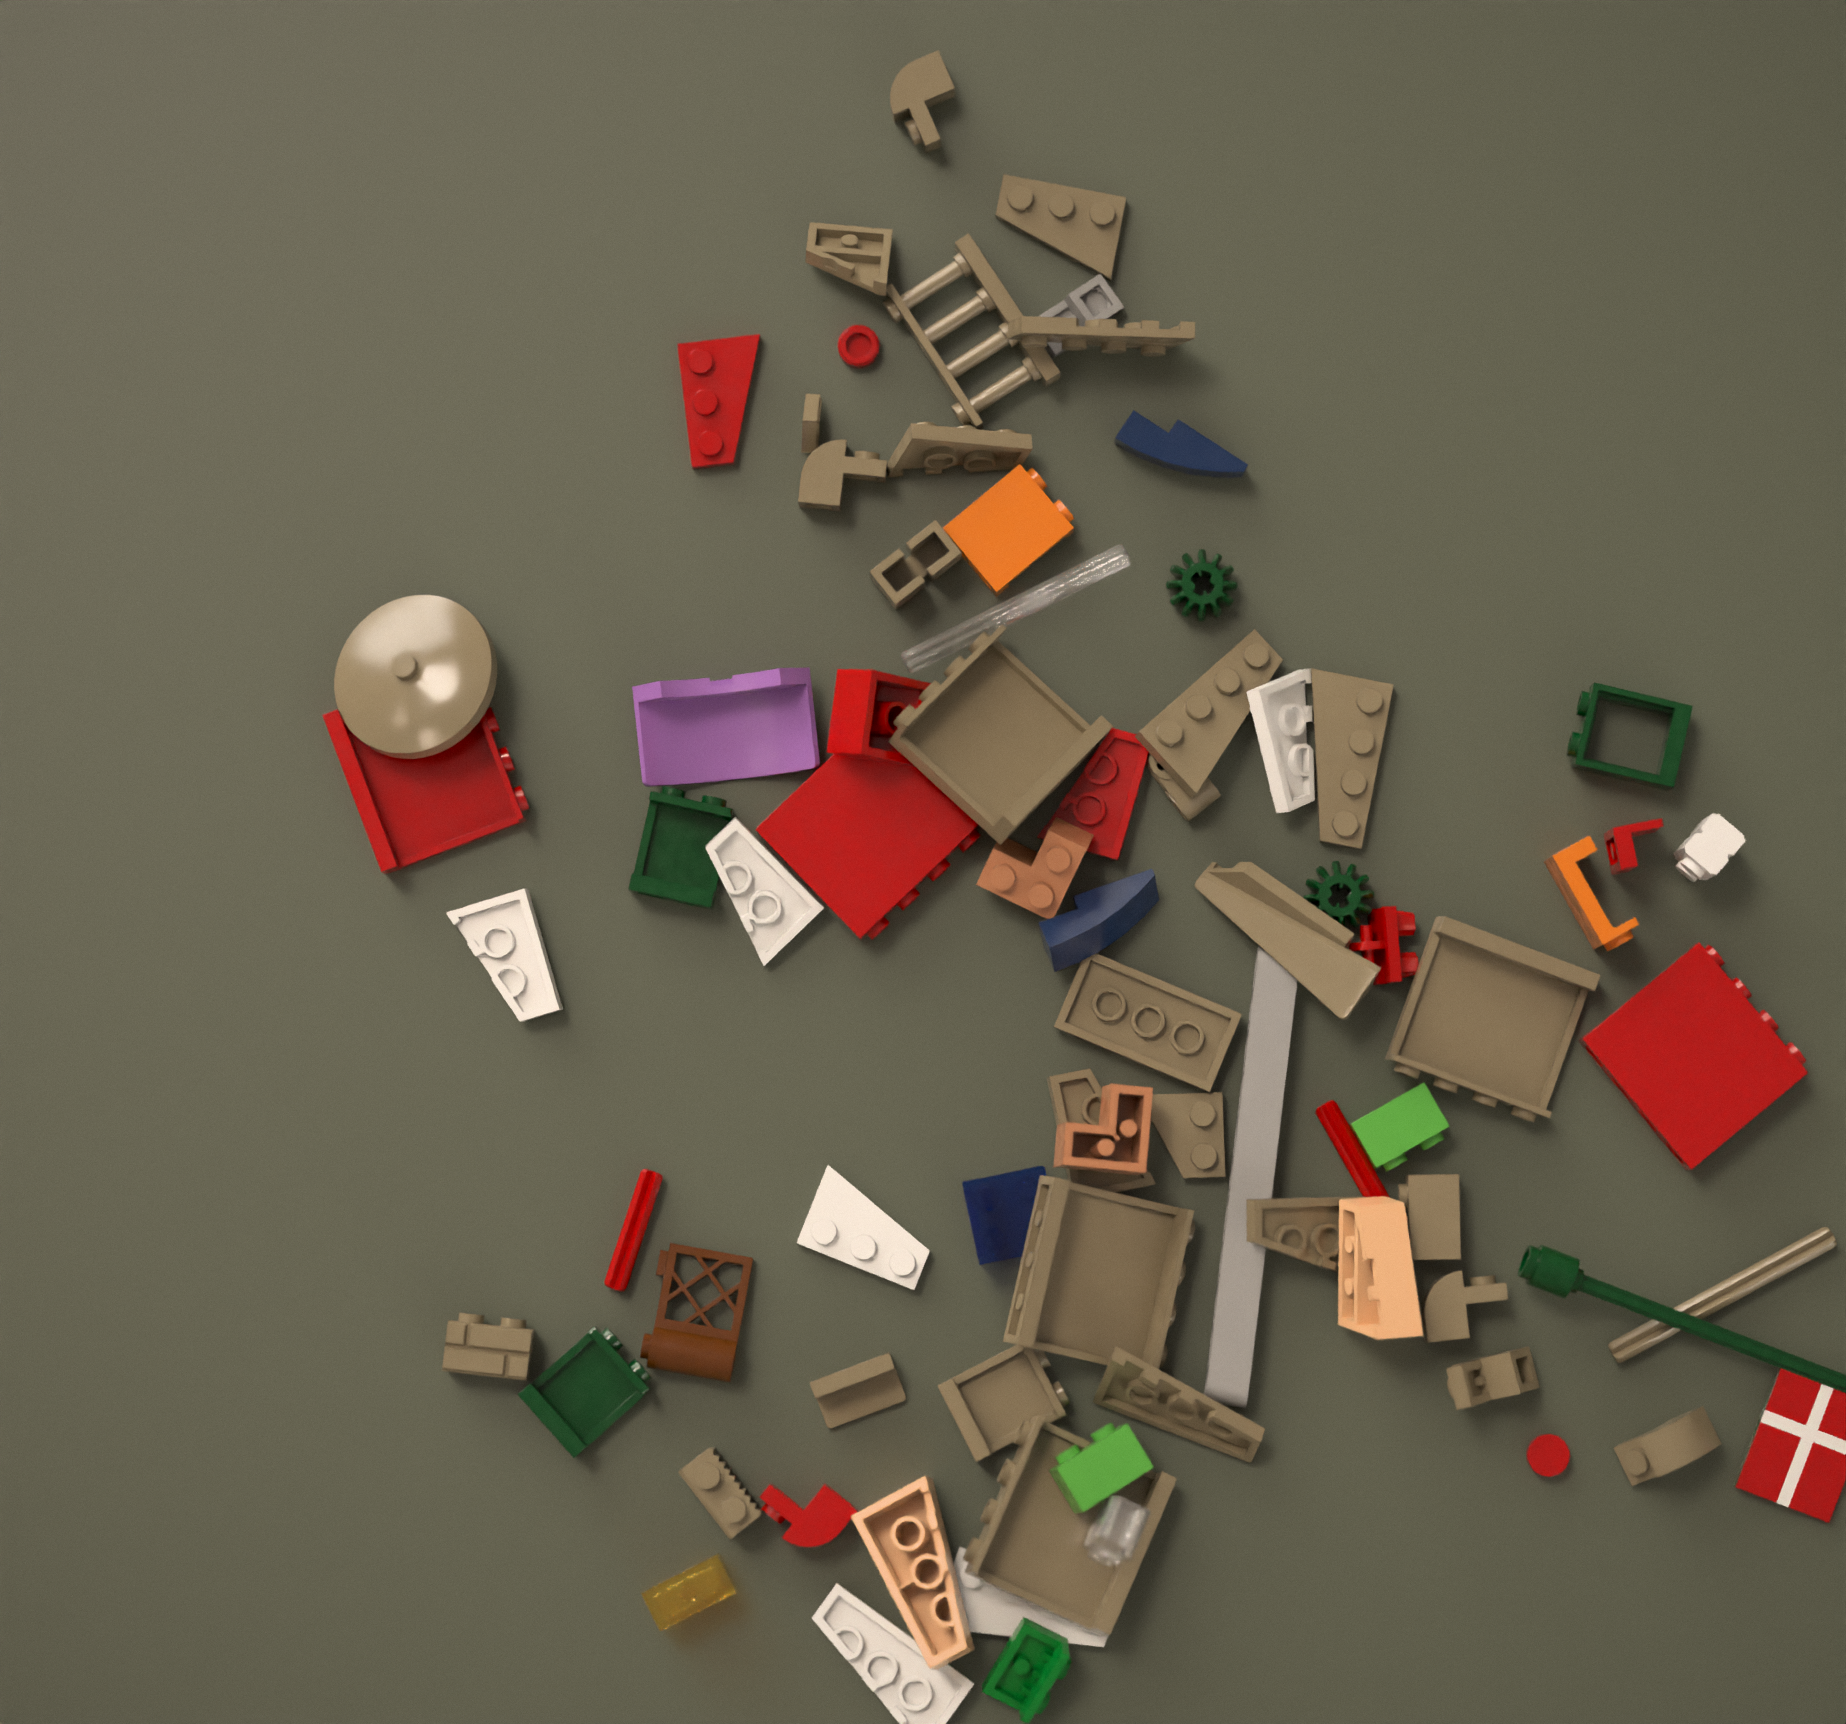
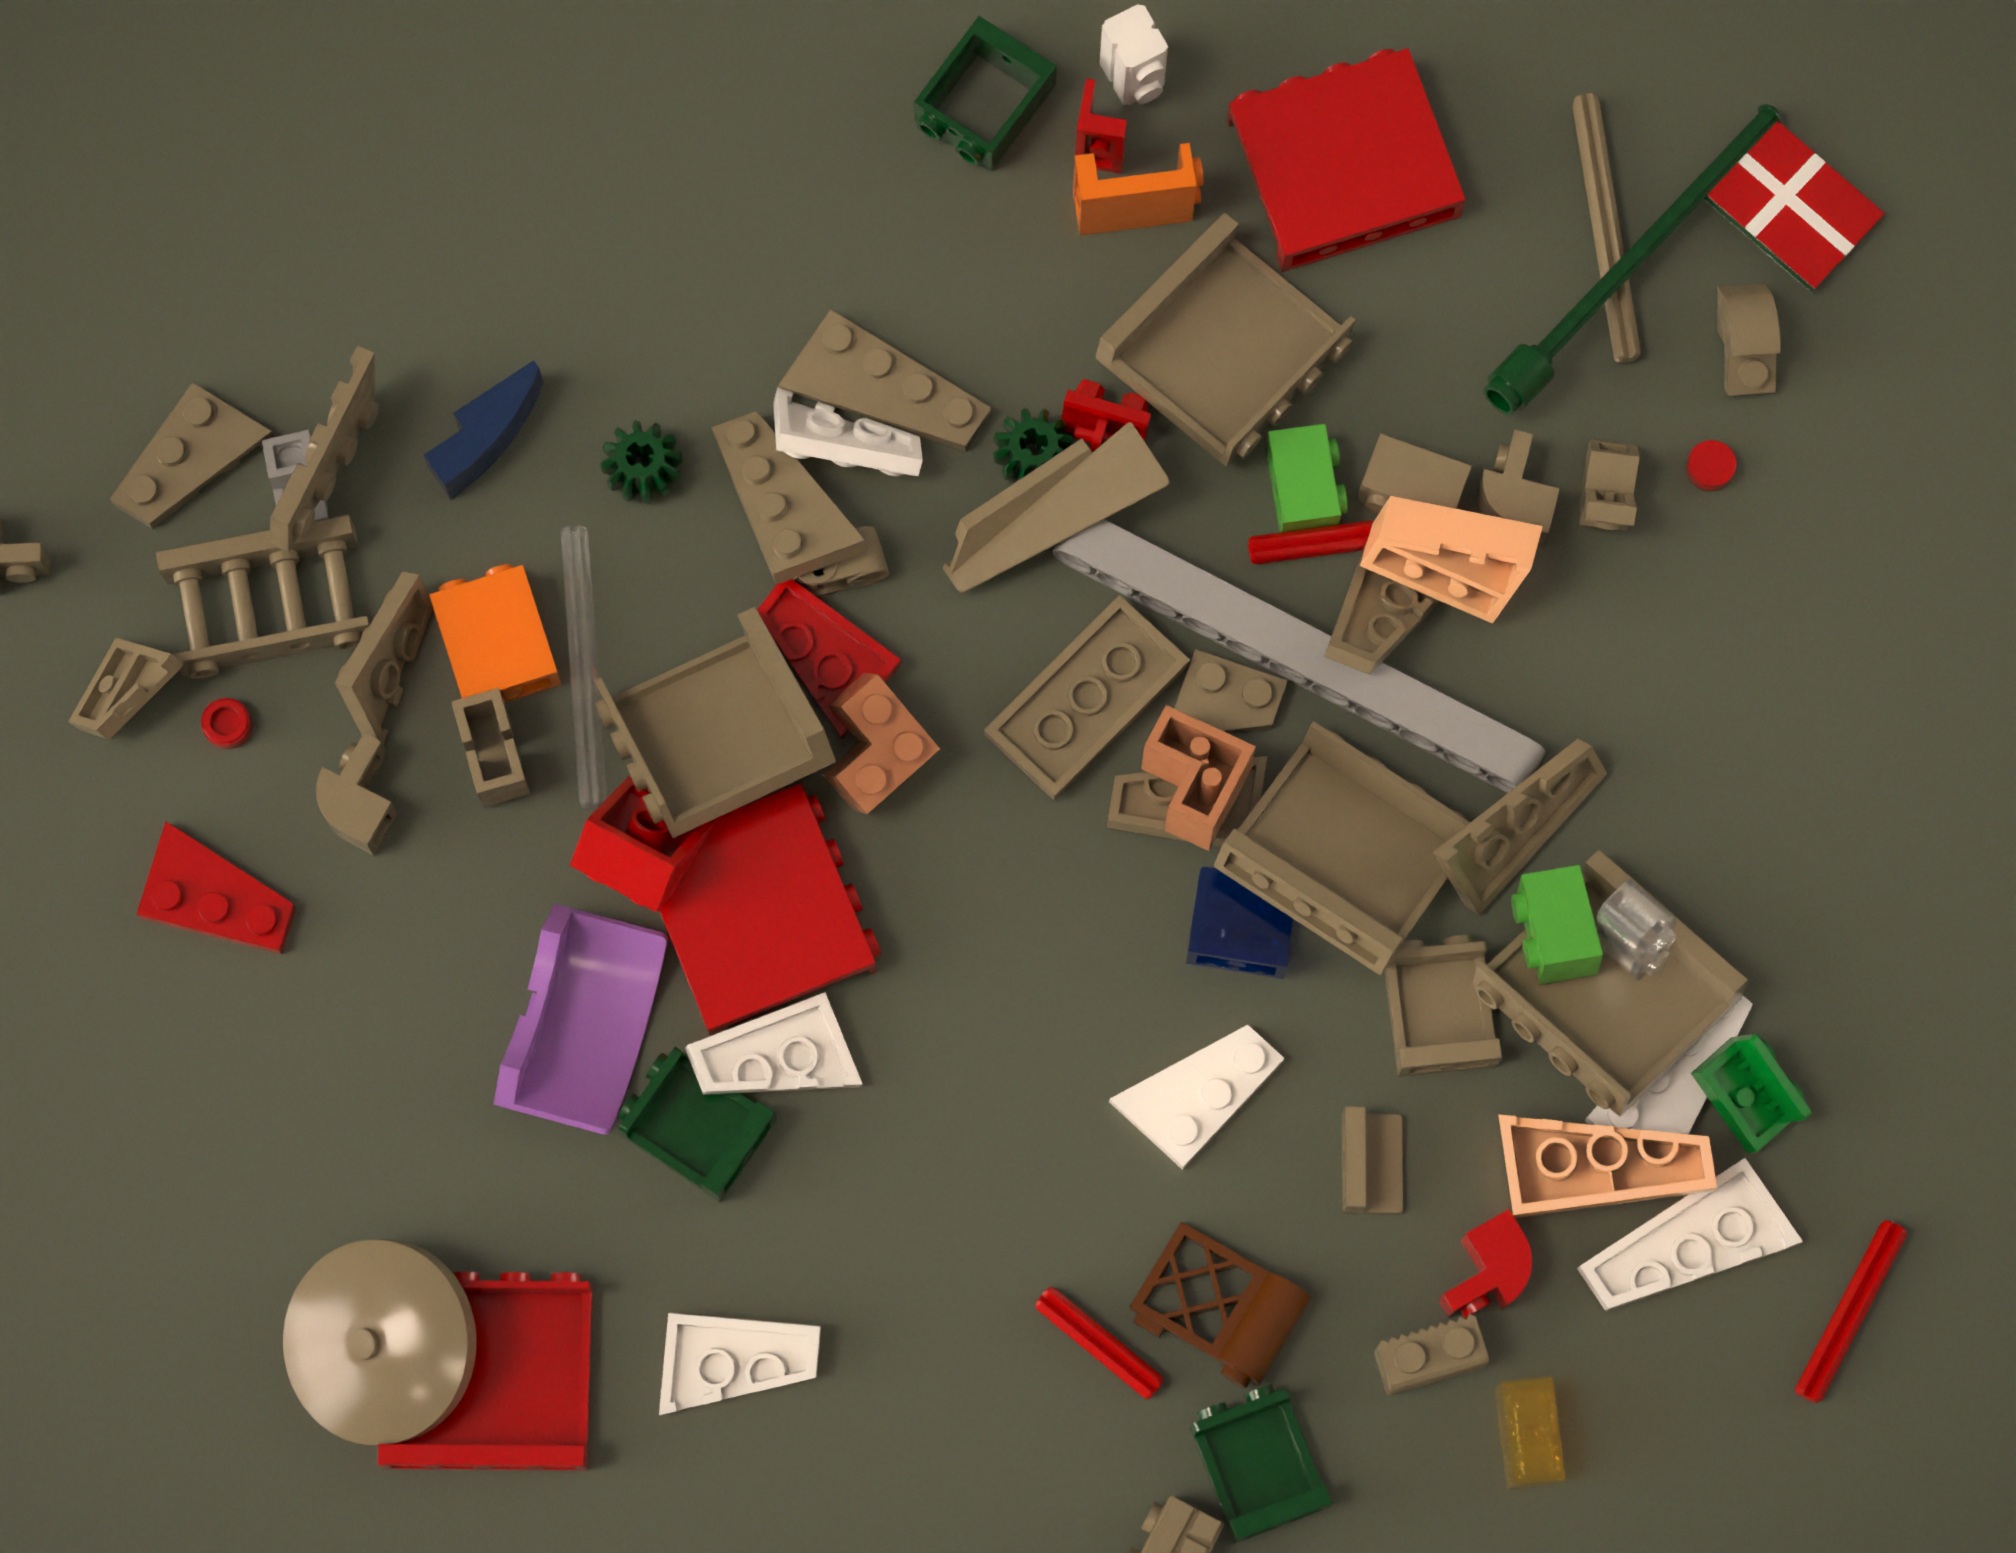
camera: 75 degrees left, 10 degrees down
(811, 423) = (288, 803): dark tan tile -> none
(1098, 919) = (957, 705): dark blue slope -> none

